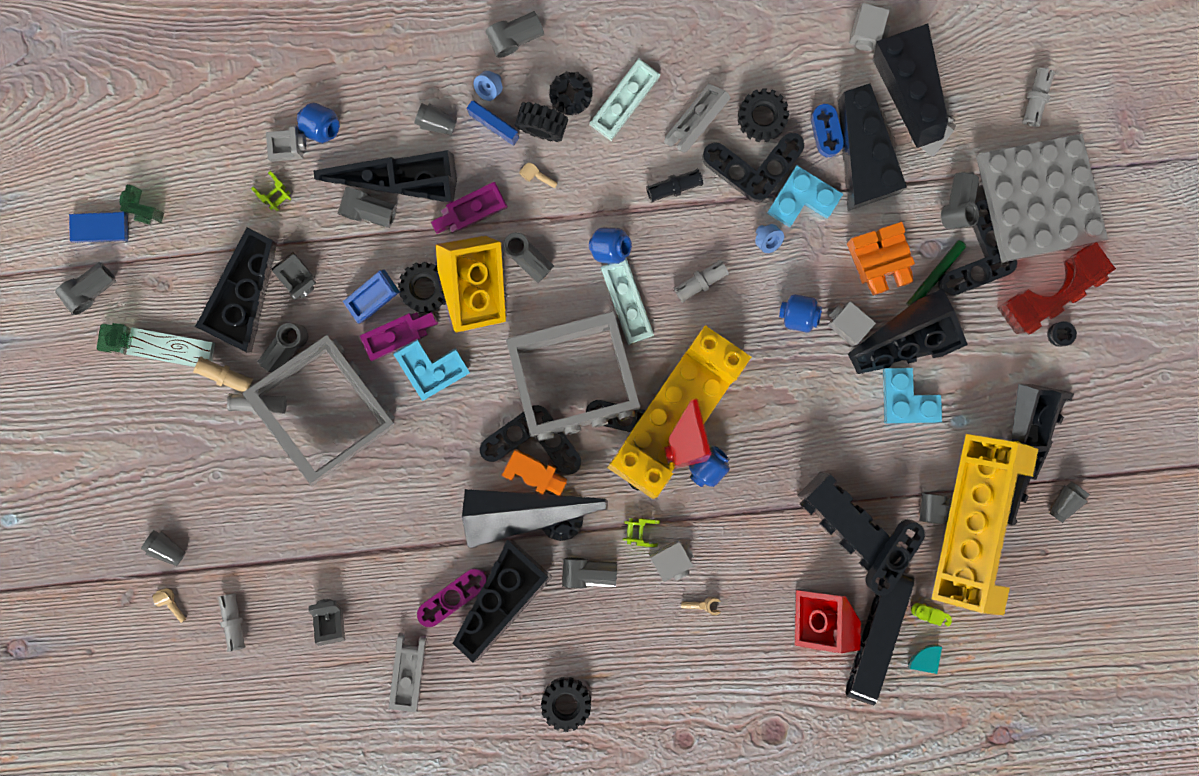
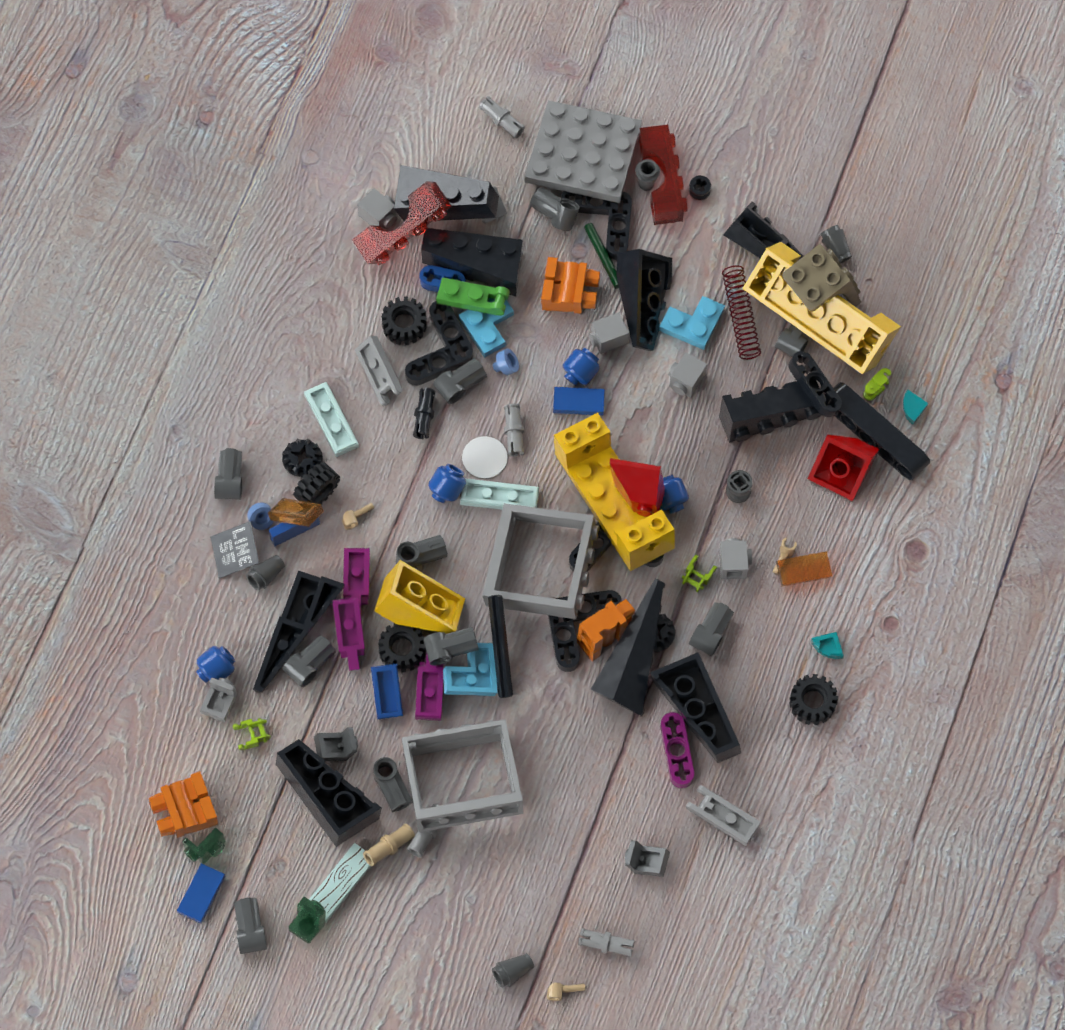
camera: 65 degrees left, 20 degrees down
(163, 167) = (187, 807): none -> orange hips
(411, 230) = (349, 630): none -> magenta hinge
(435, 329) = (443, 646): none -> dark grey piece
(443, 79) = (234, 549): none -> sticker
(466, 381) = (500, 646): none -> black axle
(501, 116) = (295, 512): none -> clear orange tile
(631, 691) = (828, 645): none -> teal tile
(661, 266) = (484, 457): none -> white sticker
(697, 632) = (804, 569): none -> clear orange tile
(720, 199) = (454, 384): none -> dark grey piece
(748, 525) = (739, 492): none -> dark grey wheel
(765, 328) = (578, 401): none -> blue tile
(820, 168) = (472, 296): none -> bright green plate
(845, 421) = (687, 375): none -> light grey brick
(889, 70) = (425, 206): none -> clear red arch
(944, 441) = (743, 312): none -> dark red piece
(1010, 513) = (821, 277): none -> dark tan bracket
(1048, 275) = (647, 174): none -> dark grey cone

